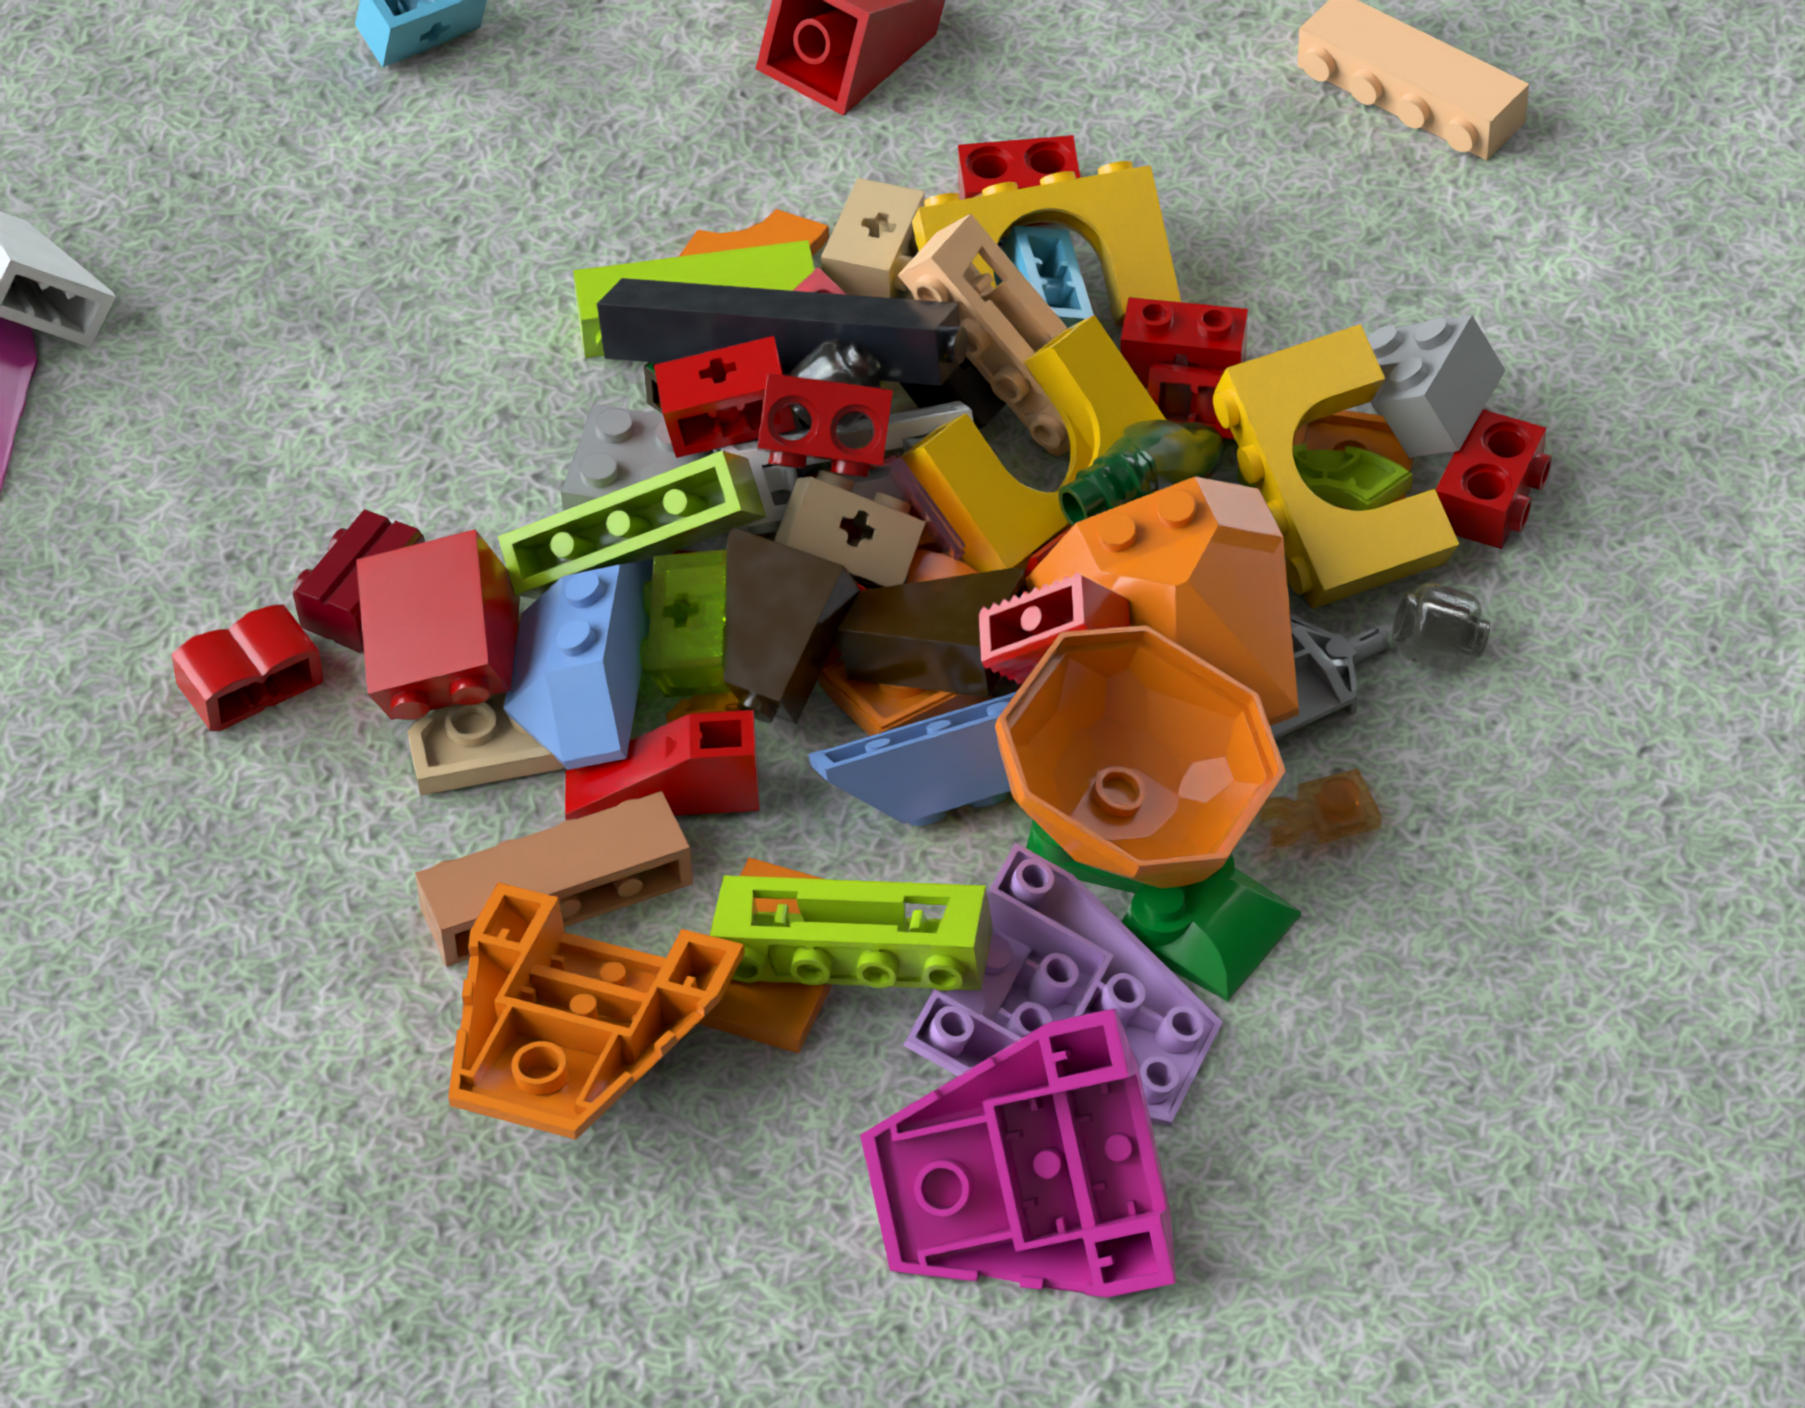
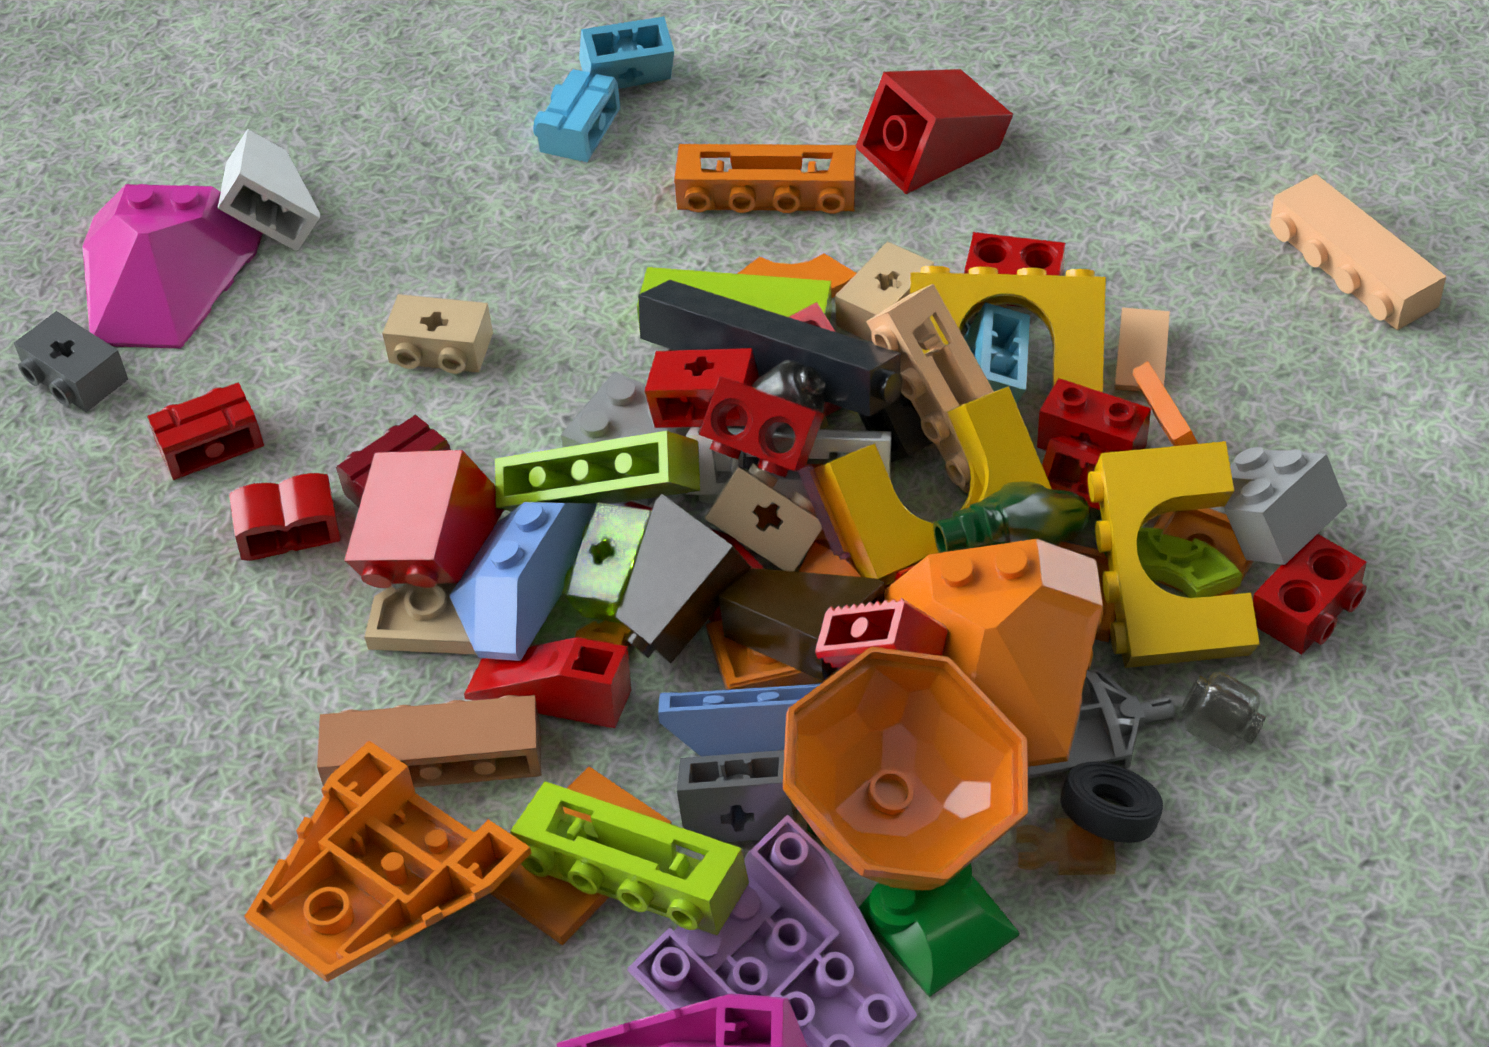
camera: 20 degrees right, 0 degrees up
(94, 589) = (205, 430): none -> red brick
(336, 408) = (438, 333): none -> tan brick
(387, 99) = (577, 115): none -> medium azure brick
(666, 130) = (766, 178): none -> orange brick
(942, 837) = (733, 795): none -> dark grey brick
(1204, 245) = (1141, 339): none -> light nougat slope
(1268, 310) = (1163, 406): none -> orange tile
(1355, 750) = (1112, 822): none -> black tyre

